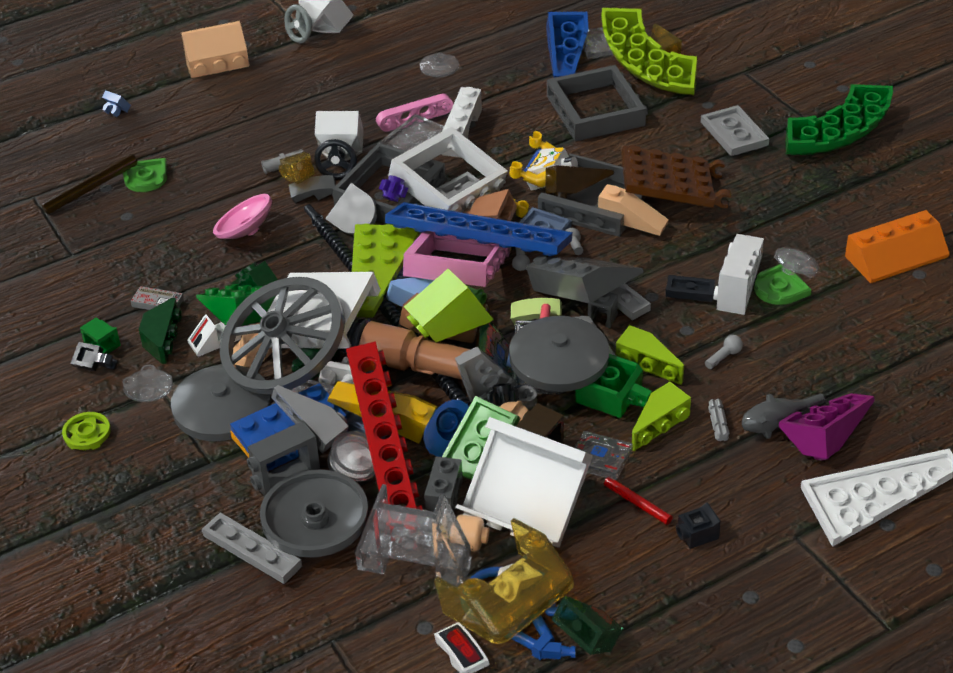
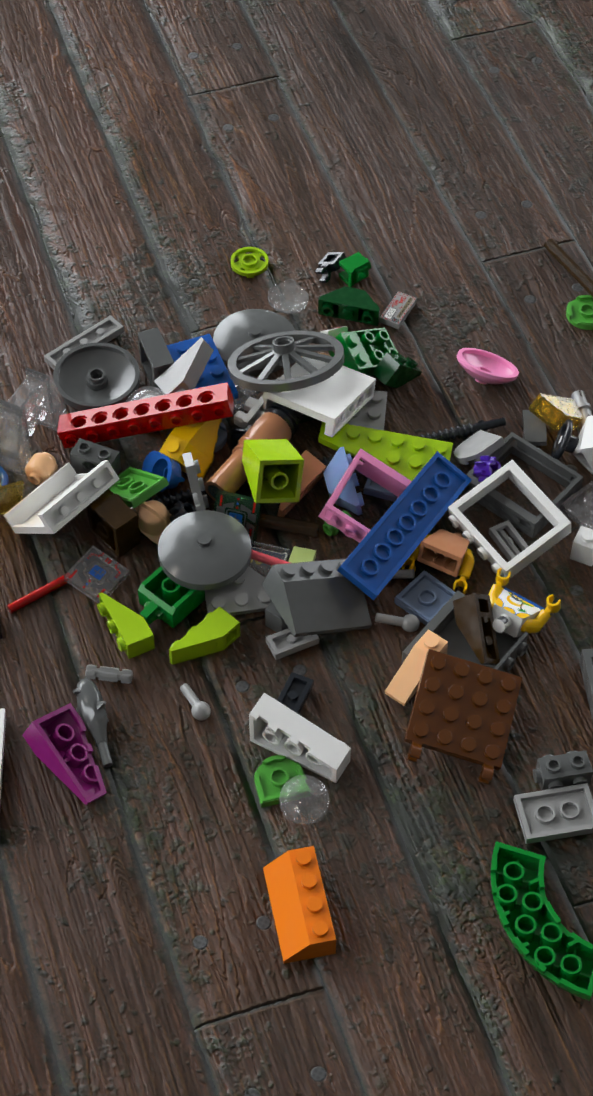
camera: 100 degrees right, 10 degrees up
(694, 129) = (563, 770): none -> dark grey brick

